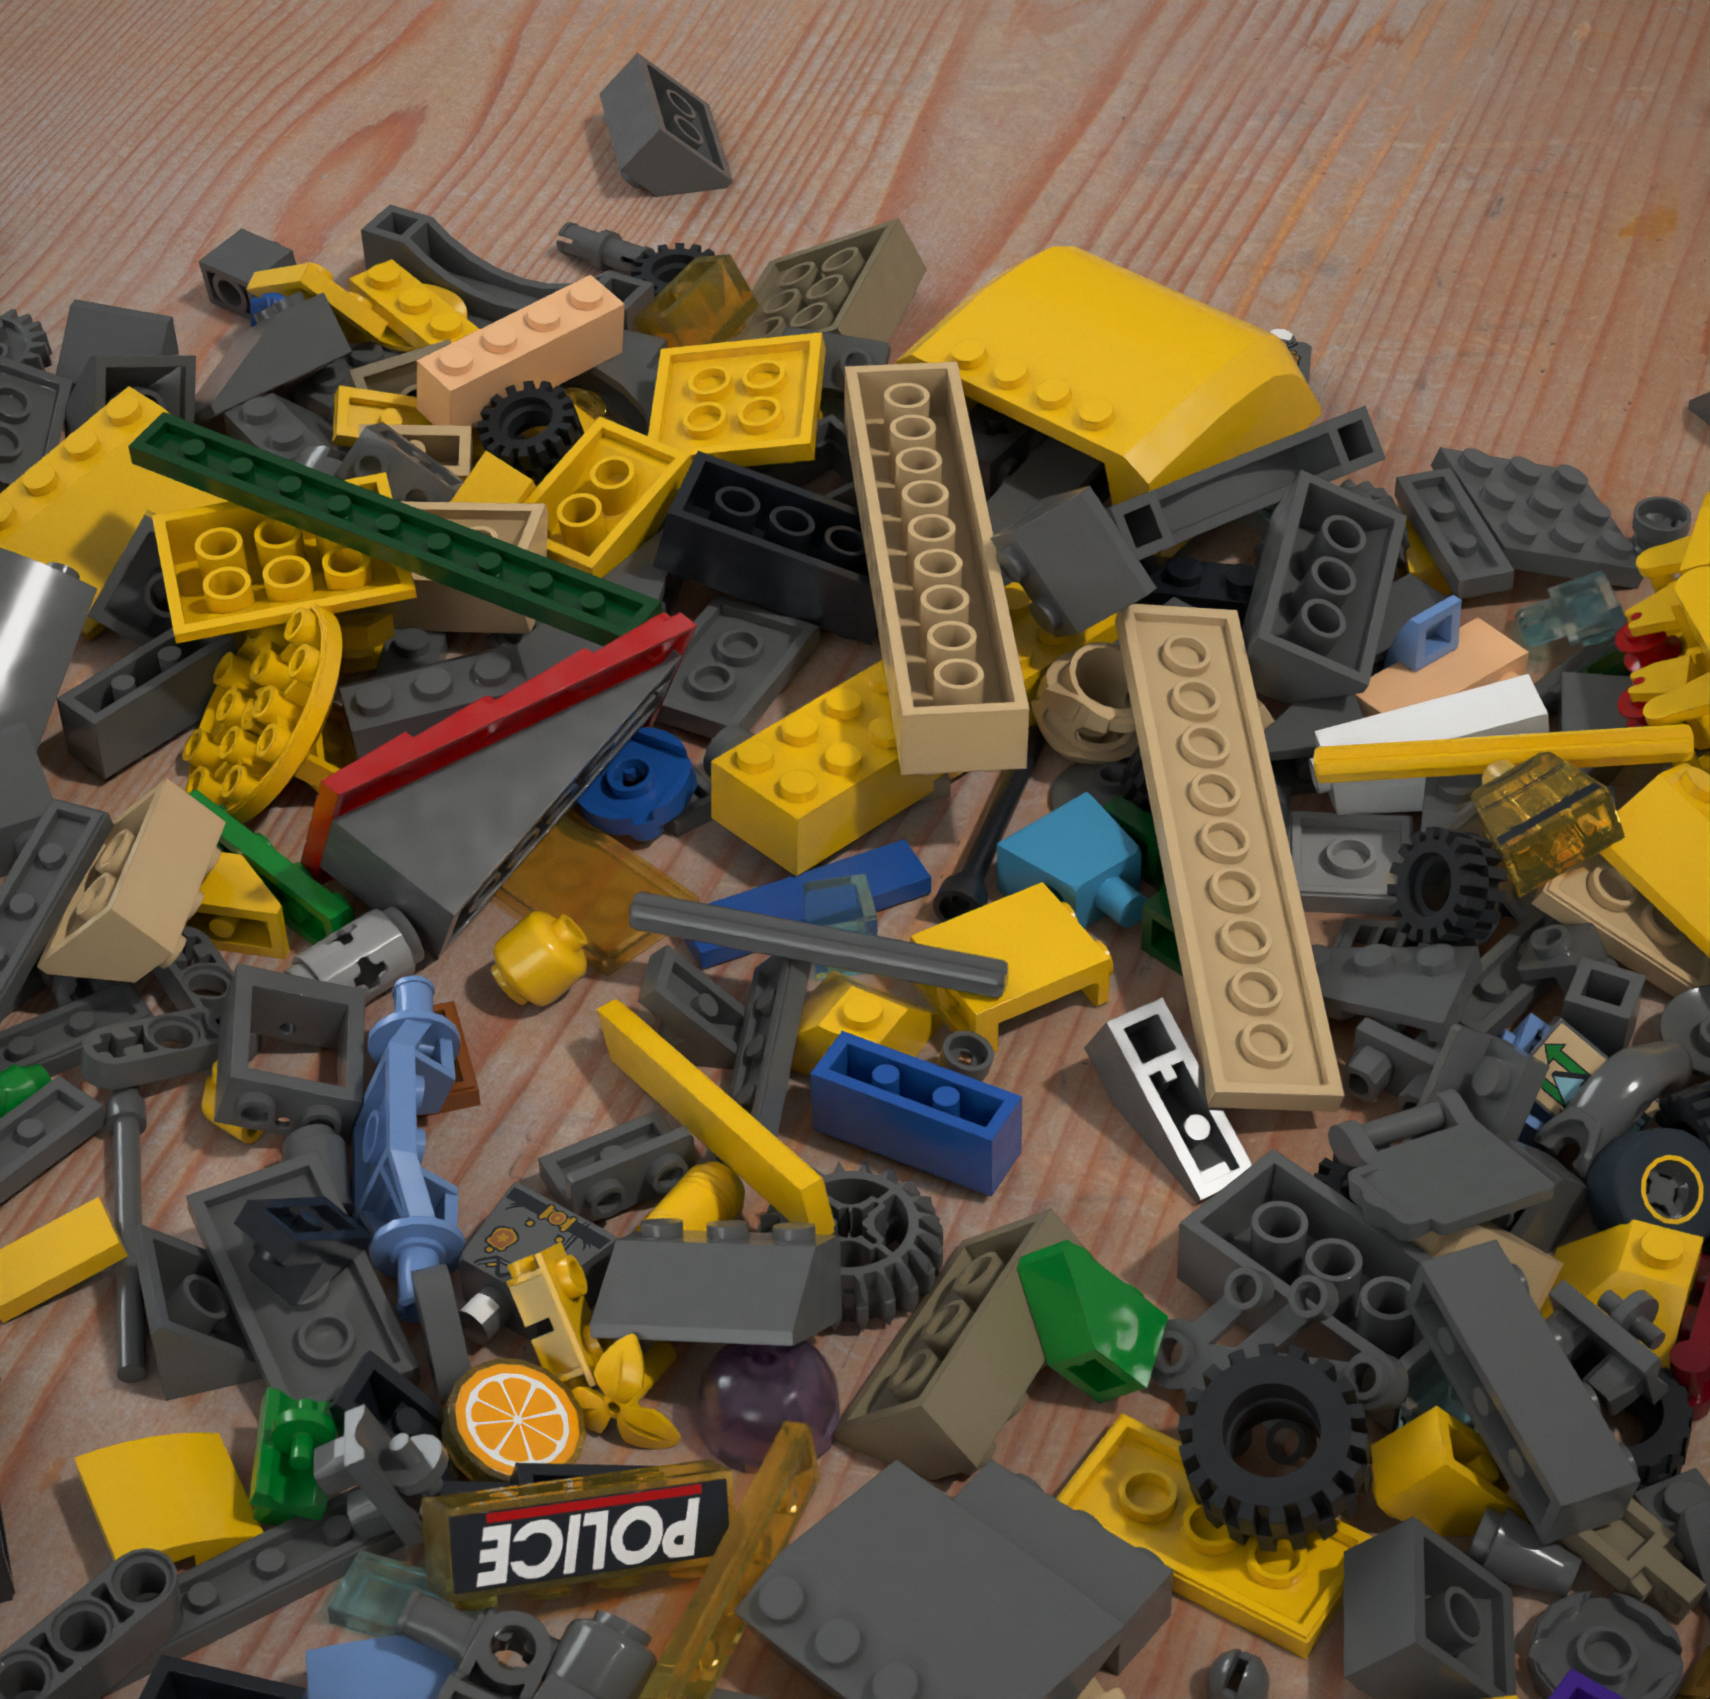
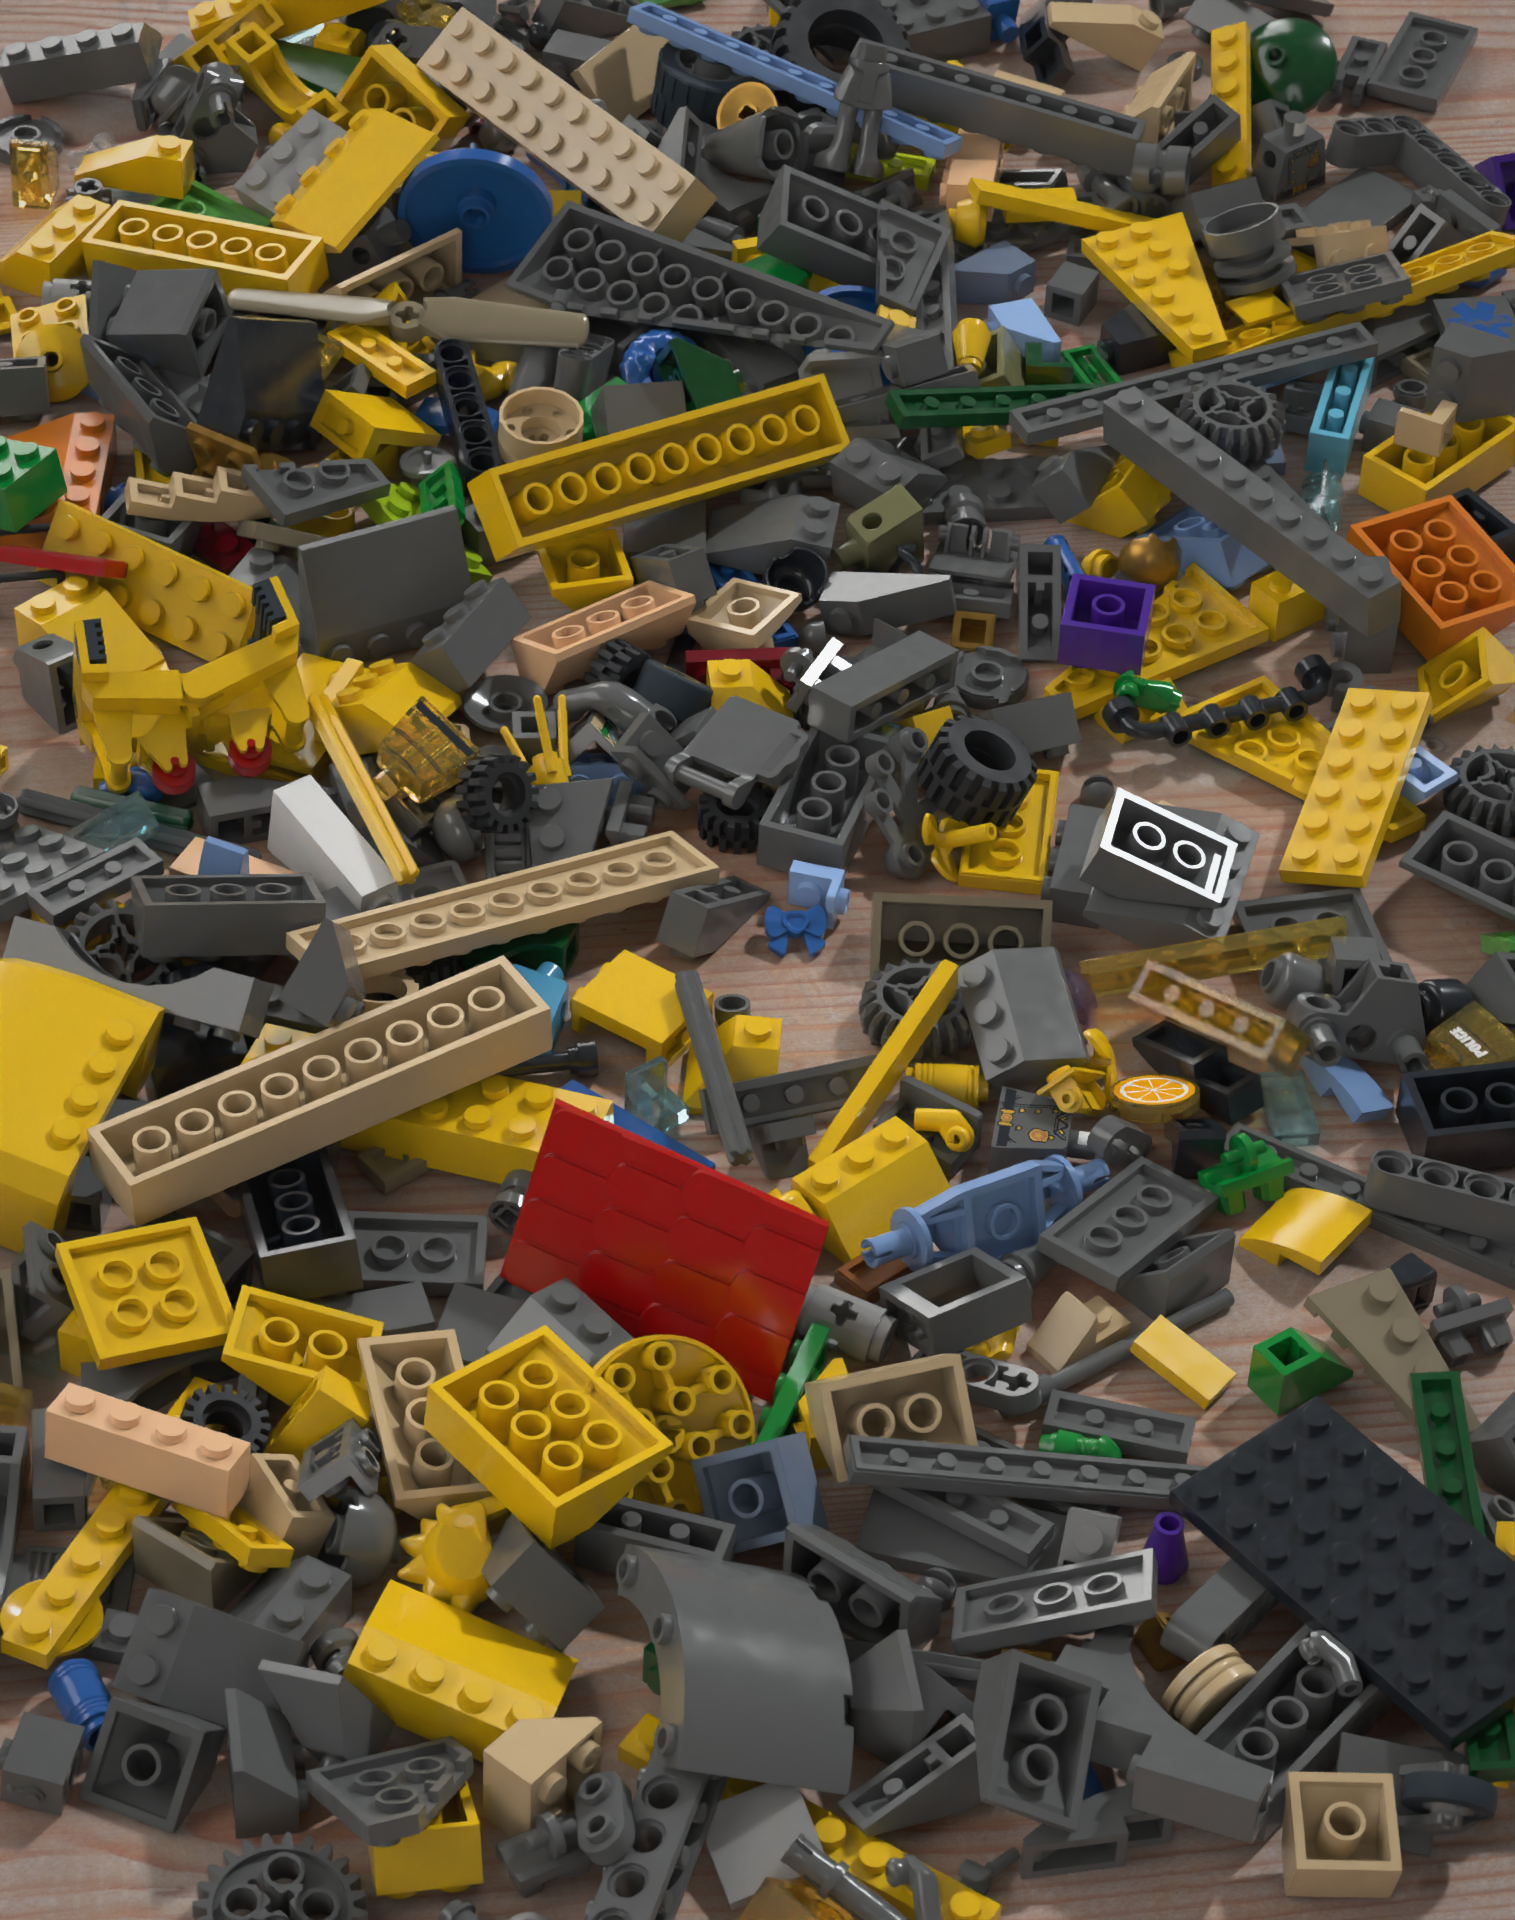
camera: 120 degrees left, 0 degrees up
(132, 763) = (761, 1489): none -> sand blue slope
(174, 1175) = (1076, 1331): none -> tan slope
(210, 326) = (151, 1762): none -> dark grey slope
(300, 1243) = (1120, 1198): black slope -> none
(350, 309) = (113, 1638): yellow wing -> none
(389, 1472) = (1250, 1103): dark grey hips -> none
(392, 531) = (511, 1346): dark green plate -> none
(543, 1066) = (868, 1182): none -> yellow slope
(559, 1160) = (949, 1123): none -> yellow arm
(916, 1113) = (806, 1001): blue brick -> none
(917, 1543) = (1156, 855): none -> dark grey slope
(1091, 1321) = (925, 872): green slope -> none
(1107, 1181) = (809, 924): none -> blue piece
(1147, 1240) = (818, 885): none -> light blue bracket
(1164, 1404) = (949, 836): none -> yellow plant
(1505, 983) = (546, 765): none -> yellow plant

